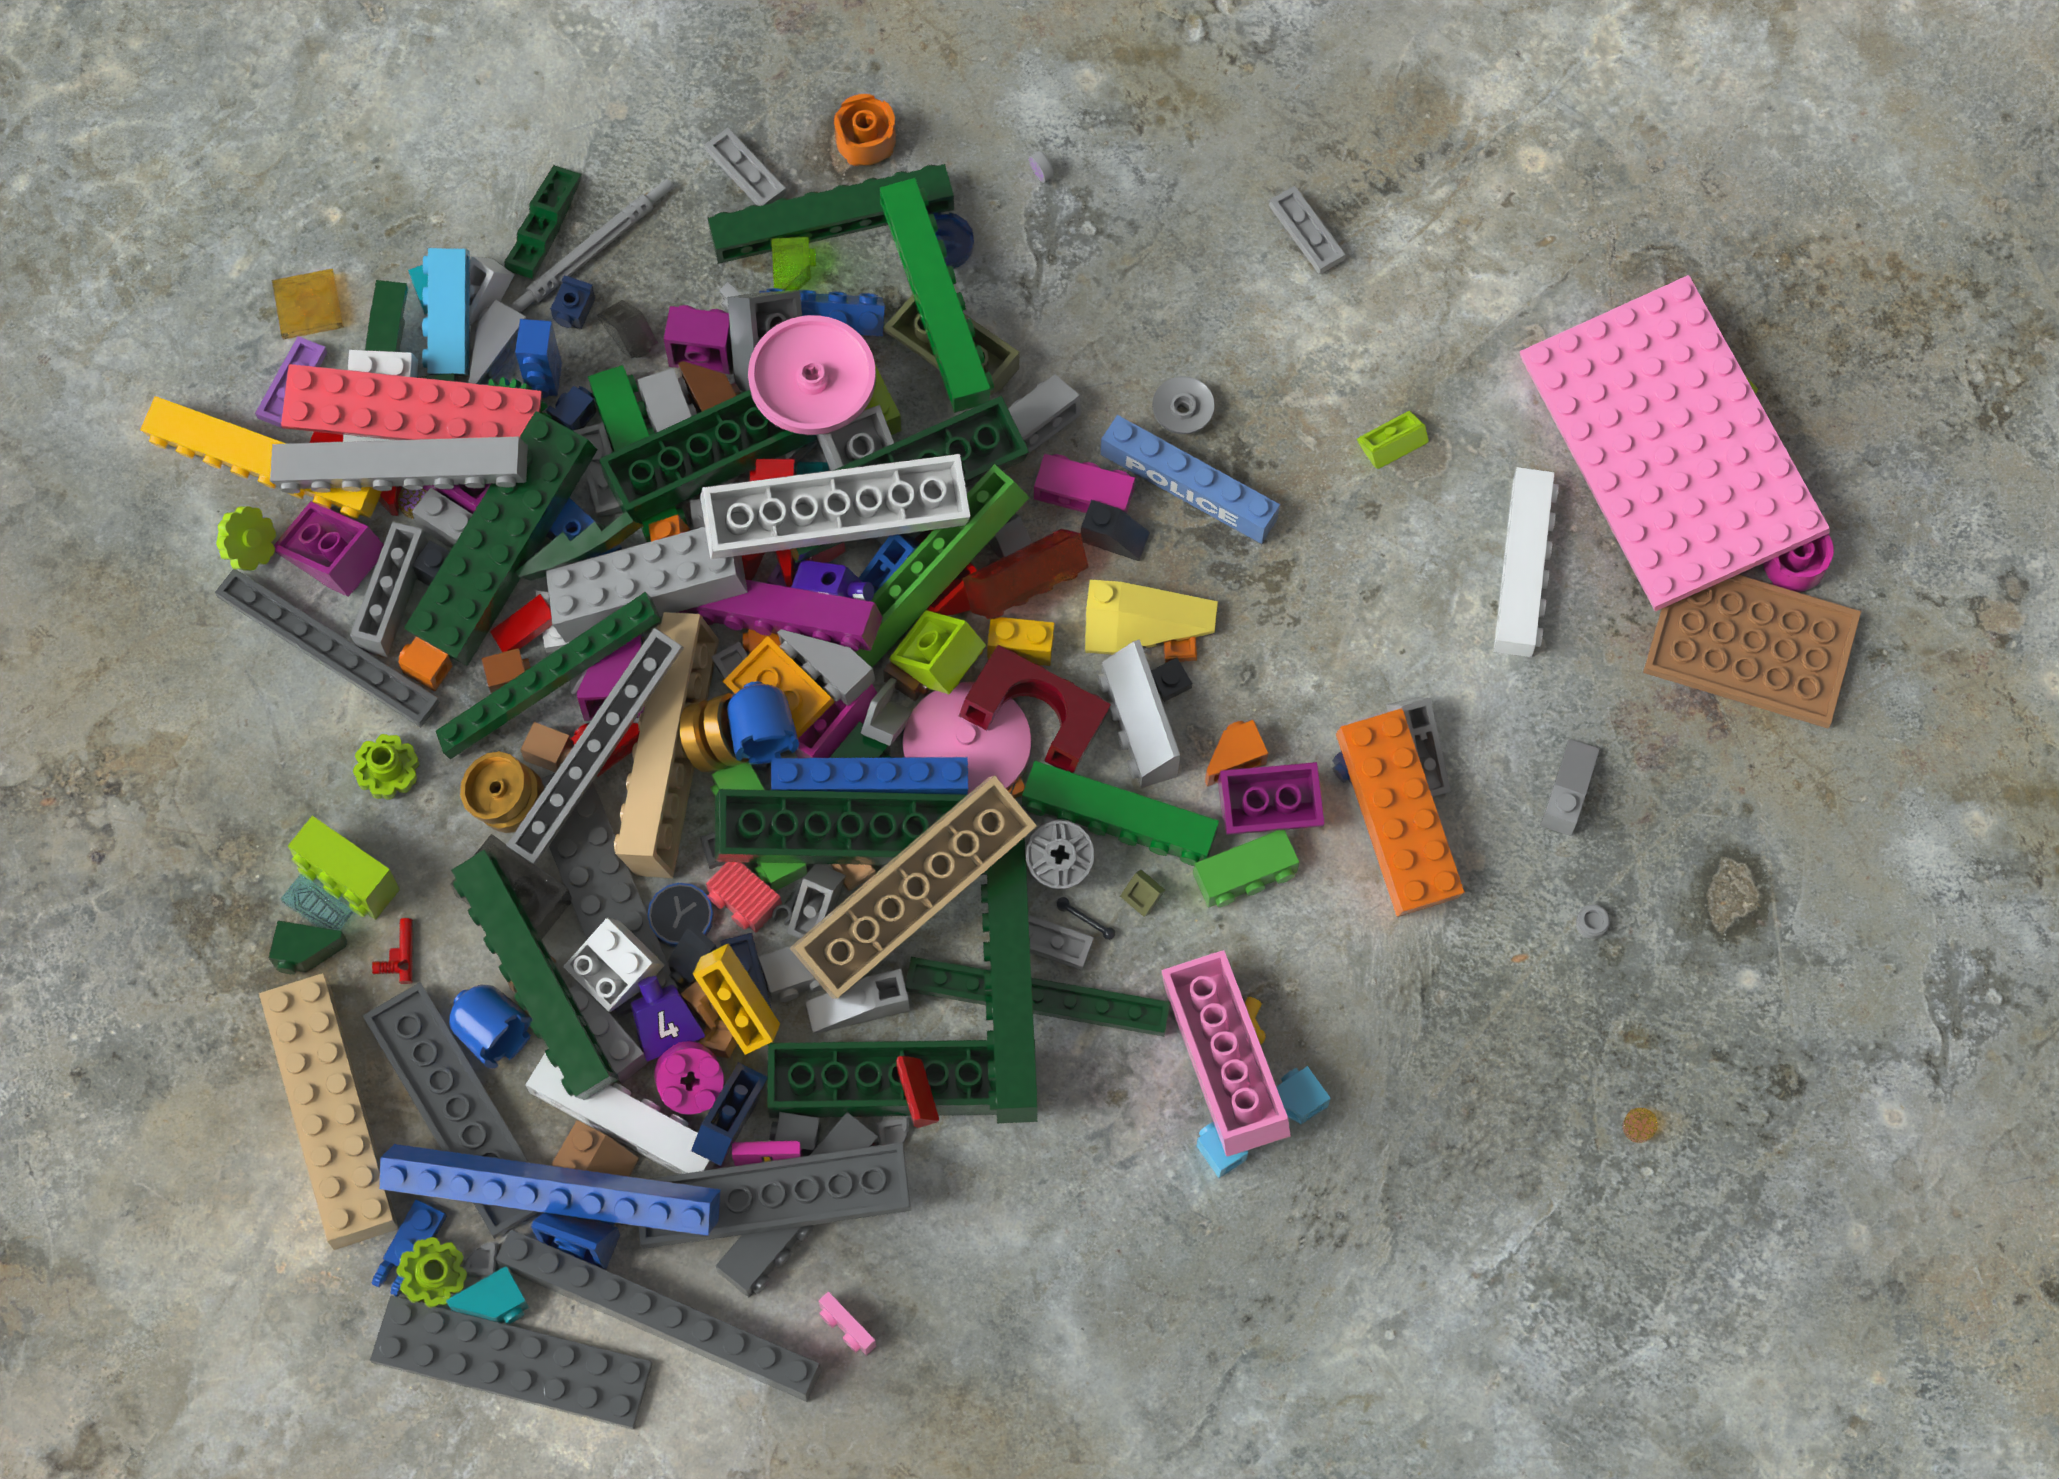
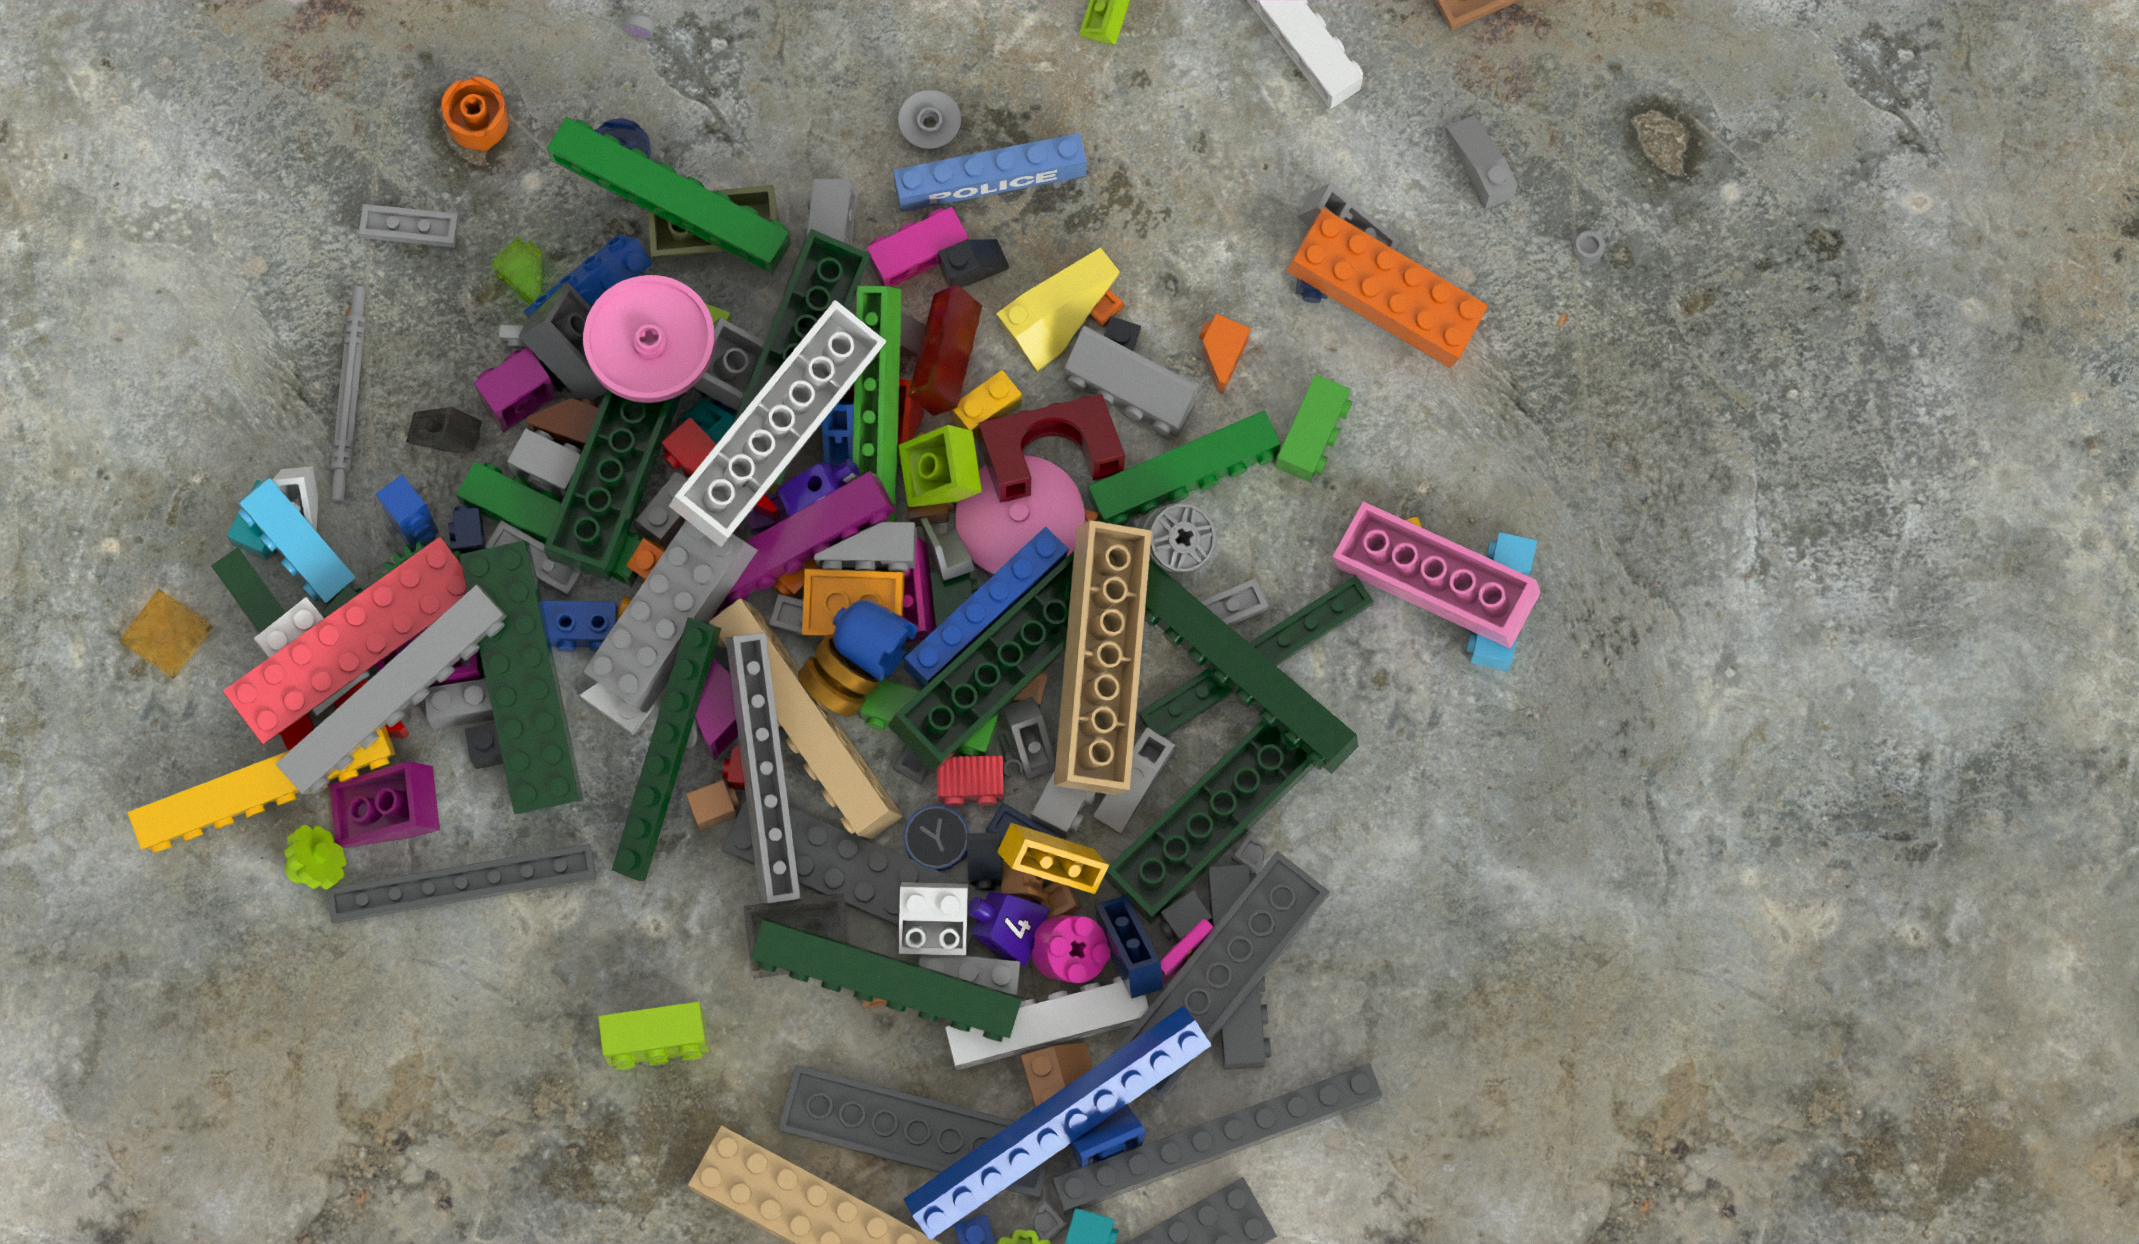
camera: 45 degrees left, 5 degrees up
(301, 353) = (220, 715): medium lavender plate -> none
(303, 946) = (679, 1121): dark green slope -> none
(316, 904) = (655, 1082): clear light blue tile -> none
(386, 766) = (602, 931): lime plant -> none
(388, 590) = (468, 794): light grey brick -> none
(399, 955) = (756, 1060): red hose -> none
(409, 499) = (415, 716): clear yellow tile -> none
(424, 663) = (551, 827): orange brick -> none
(489, 1024) = (880, 1046): blue cylinder -> none
(494, 341) = (348, 527): light grey slope -> none
(500, 790) = (711, 851): pearl gold wheel -> none
(503, 668) = (621, 776): dark orange brick -> none
(523, 625) = (599, 729): red tile -> none
(543, 221) = (289, 405): dark green slope -> none
(582, 299) = (375, 437): dark blue brick -> none
(588, 544) = (585, 641): dark green slope -> none
(820, 214) = (506, 210): dark green brick -> none
(855, 1335) = (1370, 1020): bright pink plate -> none
(917, 1091) = (1249, 805): red slope -> none
(1064, 905) = (1206, 573): black hinge -> none
(1142, 893) = (1257, 513): olive plate -> none
(1271, 798) = (1285, 361): magenta slope -> none
(1640, 1125) = (1758, 365): clear yellow tile -> none

